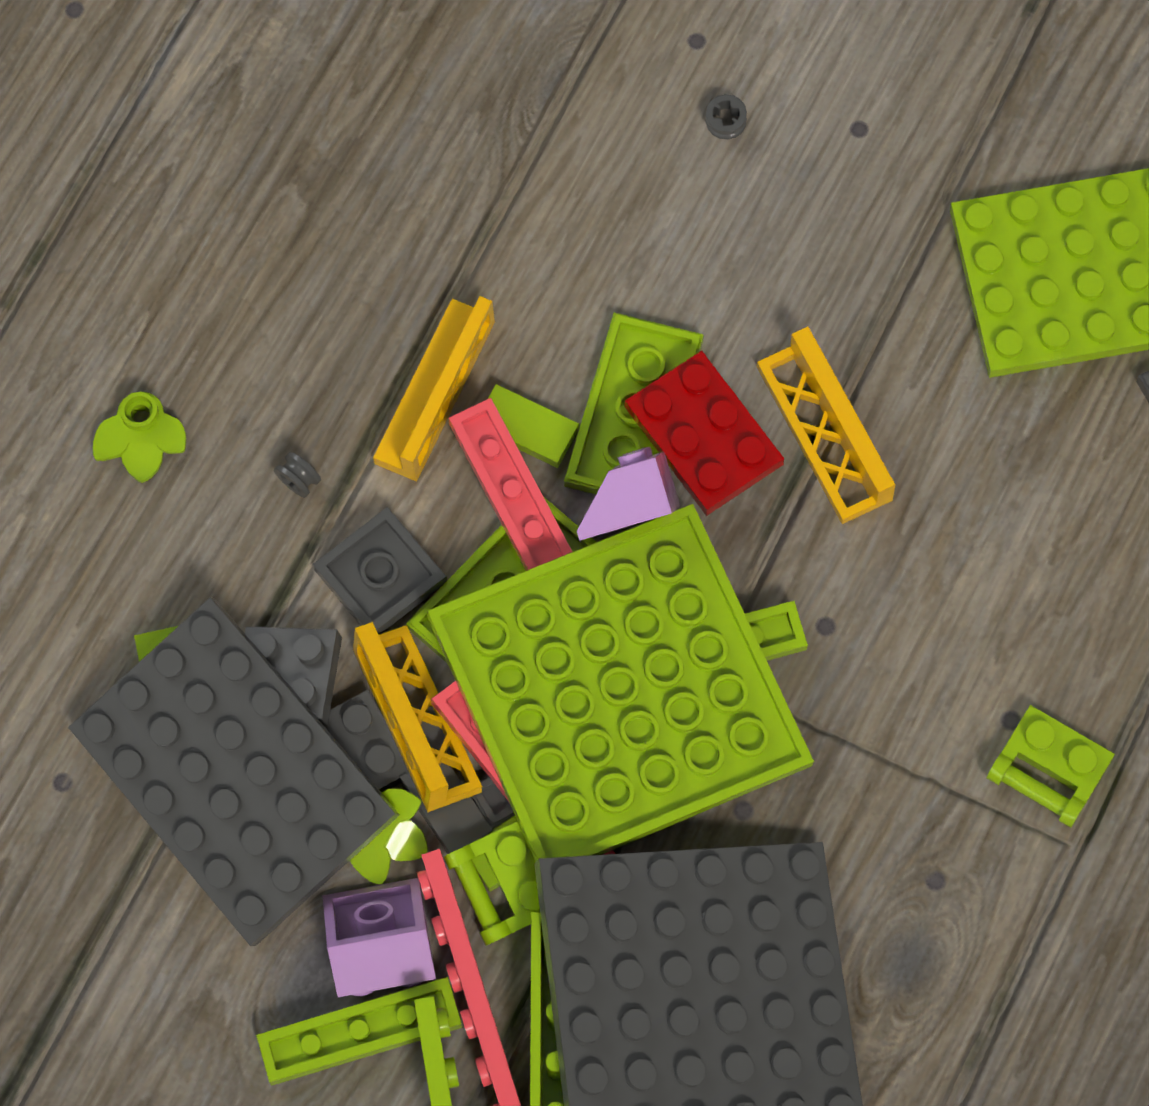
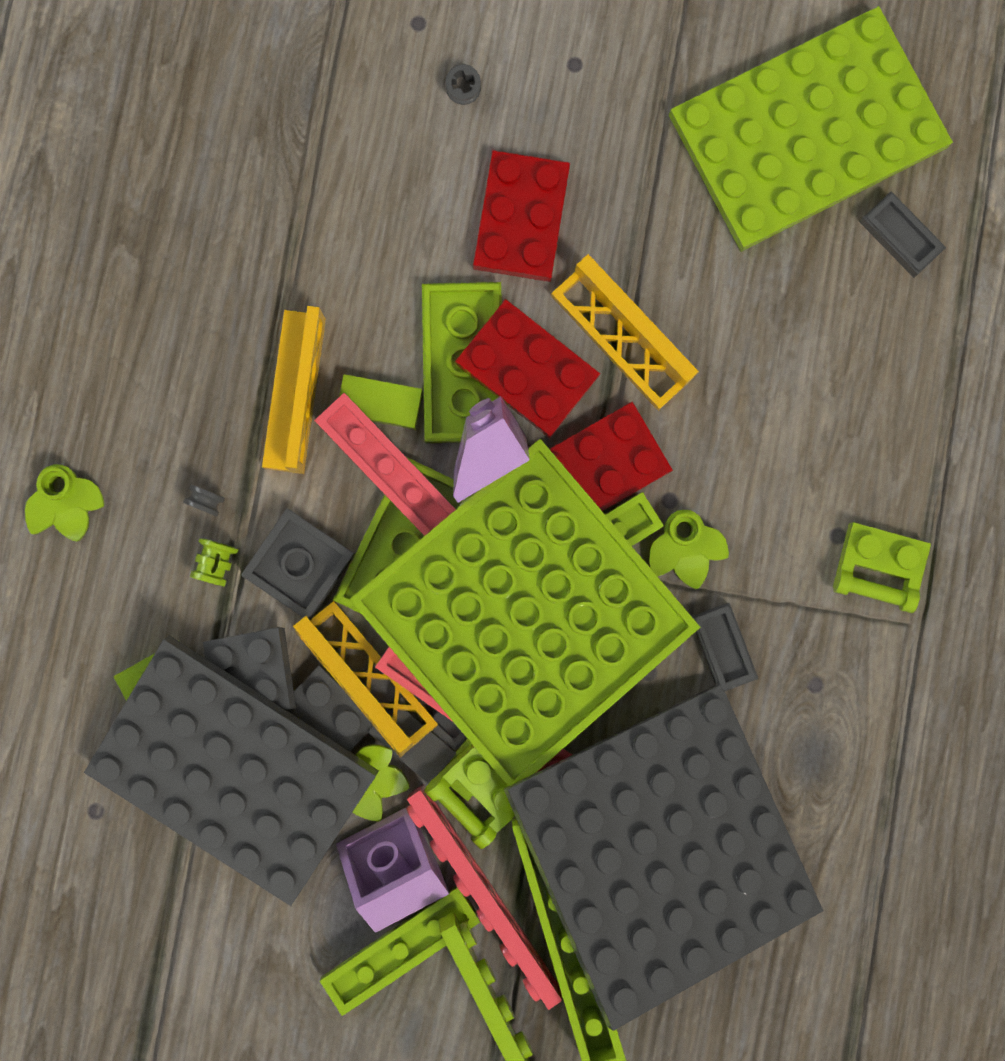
camera: 25 degrees left, 15 degrees up
(292, 529) = (213, 562): none -> lime bush
(748, 272) = (521, 216): none -> red plate
(775, 557) = (613, 457): none -> red plate
(826, 688) = (688, 555): none -> lime plate
(839, 804) = (724, 647): none -> dark grey tile

